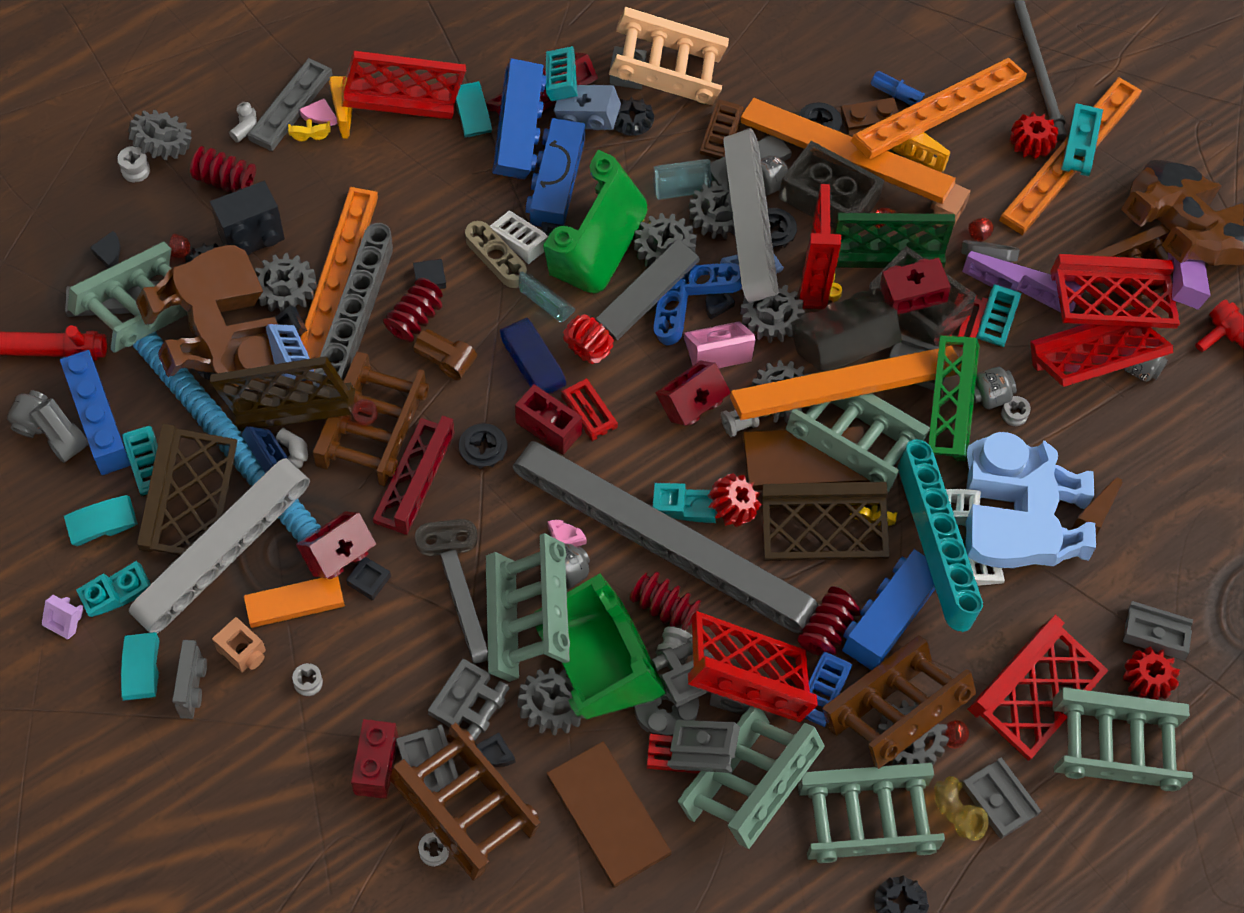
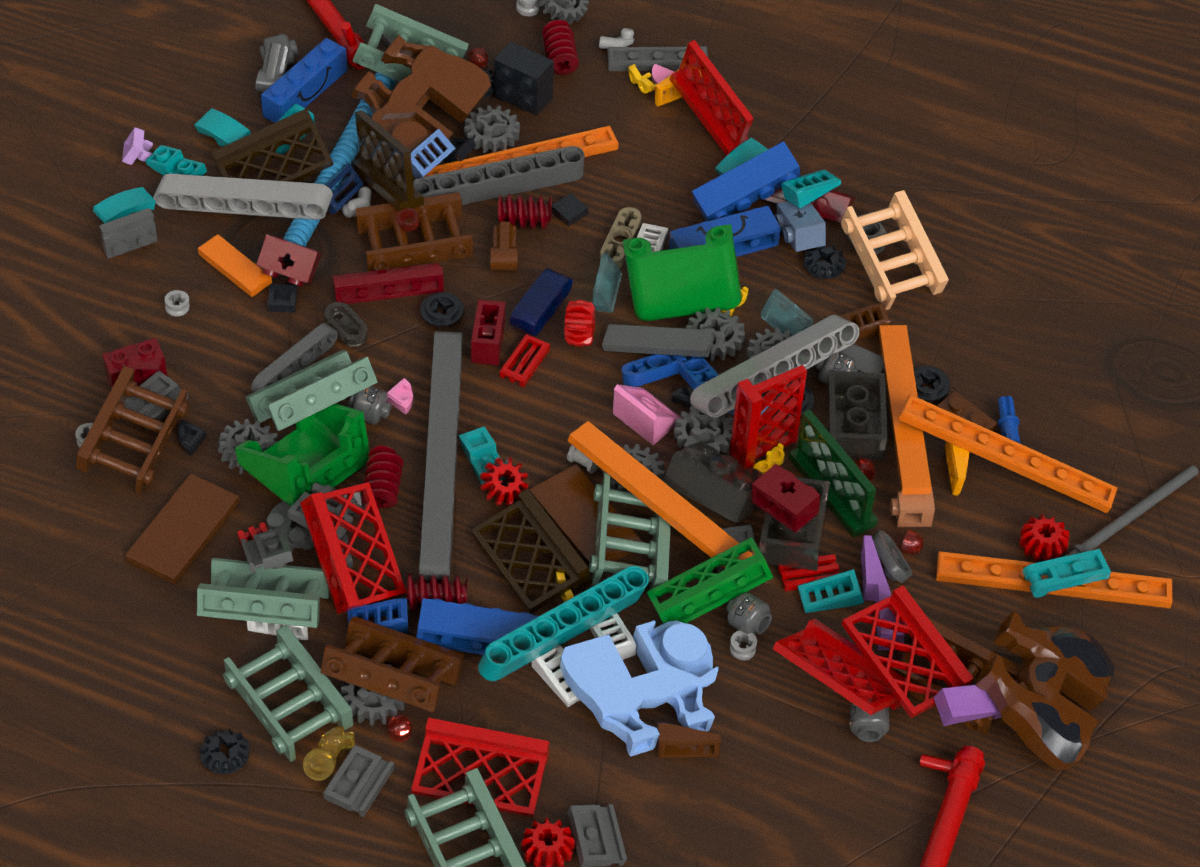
camera: 60 degrees right, 10 degrees down
(107, 250) = (448, 23): black tile -> none
(238, 636) = (175, 255): nougat brick -> none
(460, 694) = (219, 393): dark grey plate -> none
(693, 393) = (567, 403): dark red brick -> none

